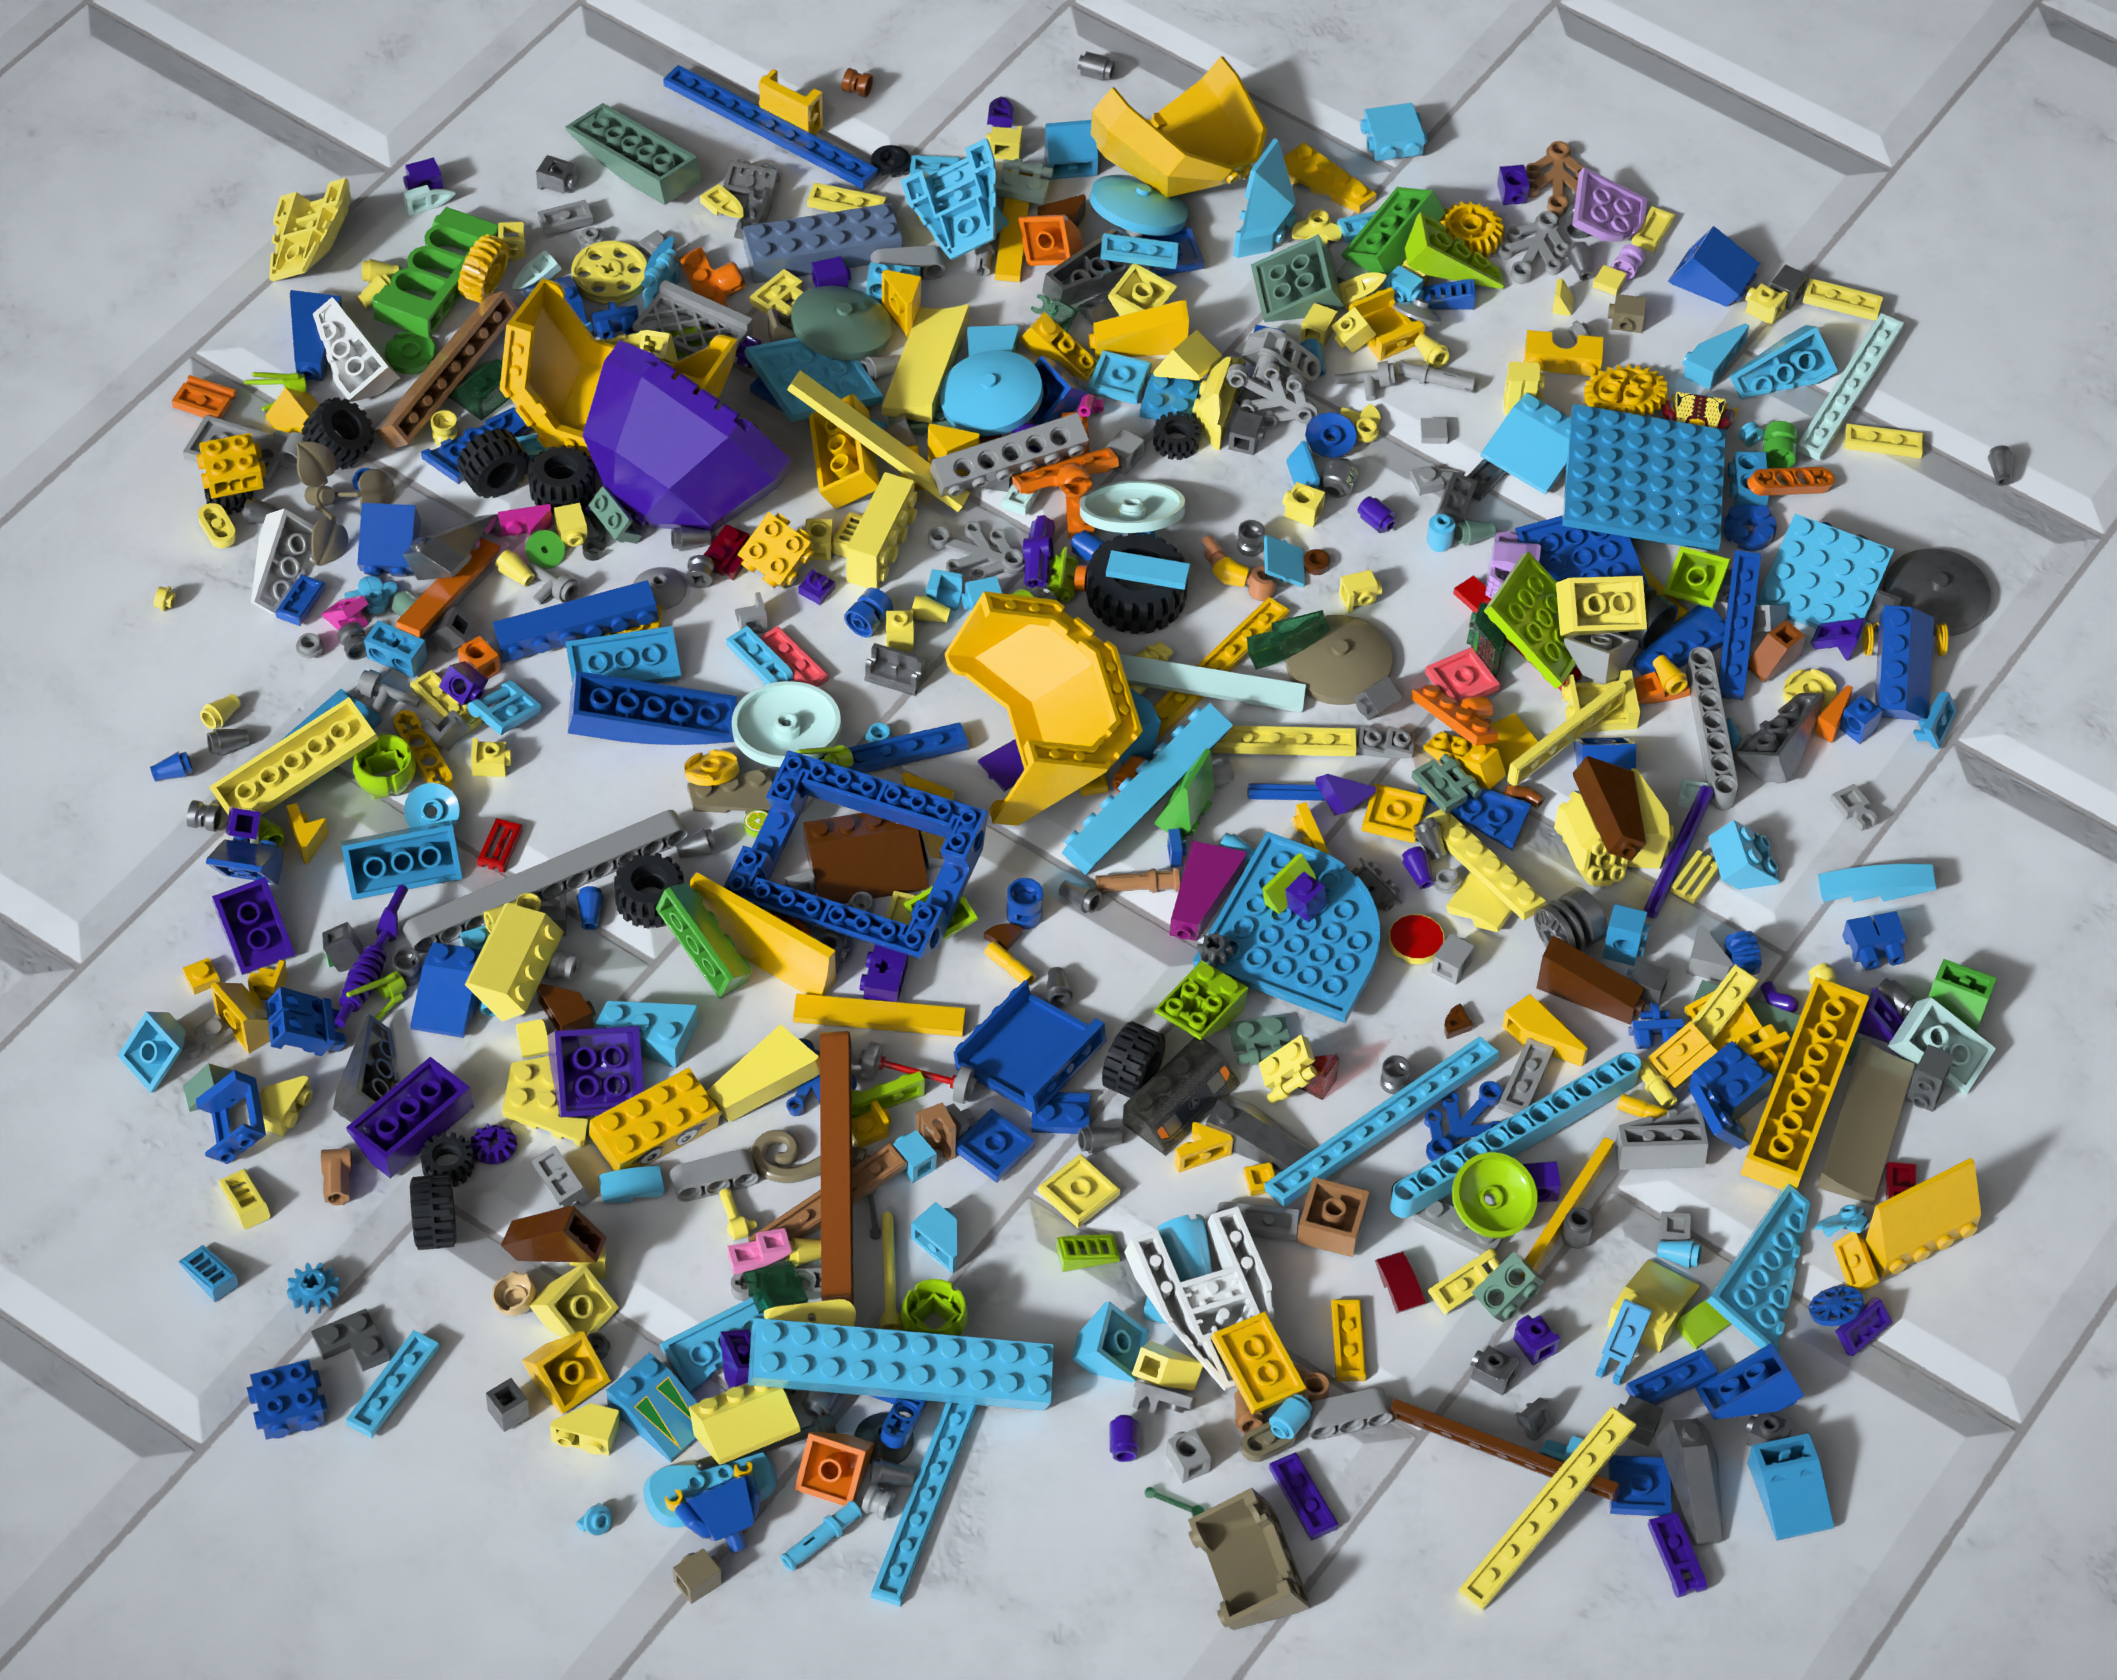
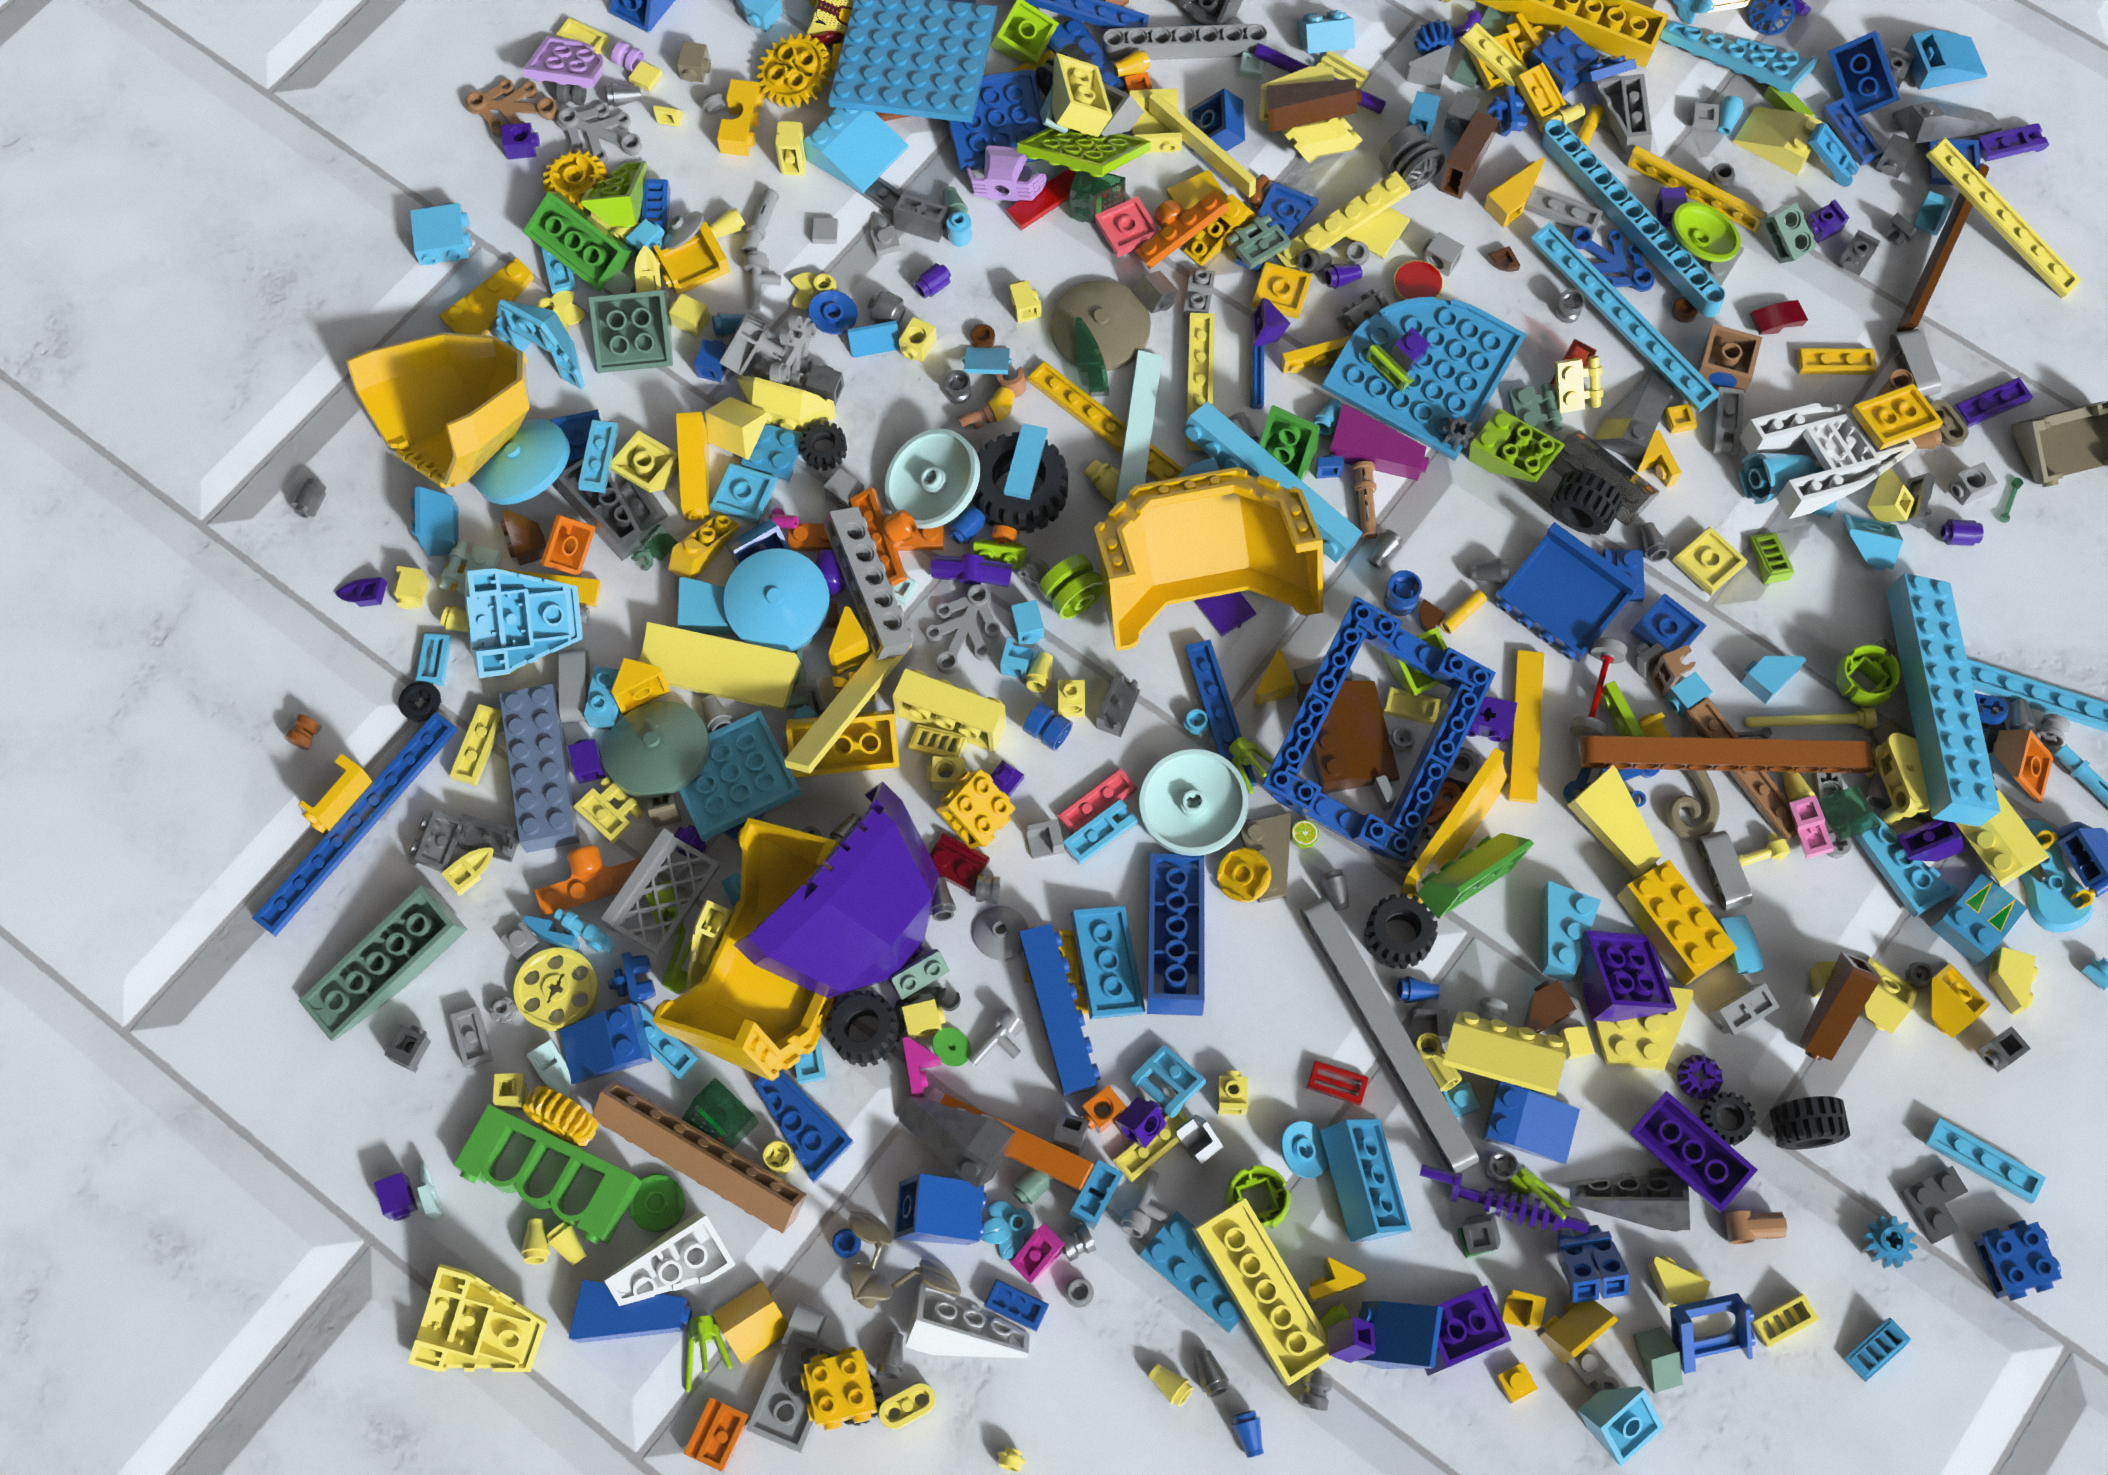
camera: 85 degrees left, 15 degrees up
(348, 422) = (791, 1287): black tyre -> none
(427, 750) = (1222, 1167): yellow beam -> none
(493, 463) = (847, 1096): black tyre -> none
(514, 567) = (976, 1077): light yellow cone -> none
(514, 1294) = (1878, 1048): tan hair -> none
(1290, 1417) = (1940, 398): medium azure brick -> none
(1352, 331) = (703, 284): light yellow brick -> none
(1459, 1285) = (1774, 265): light yellow plate -> none

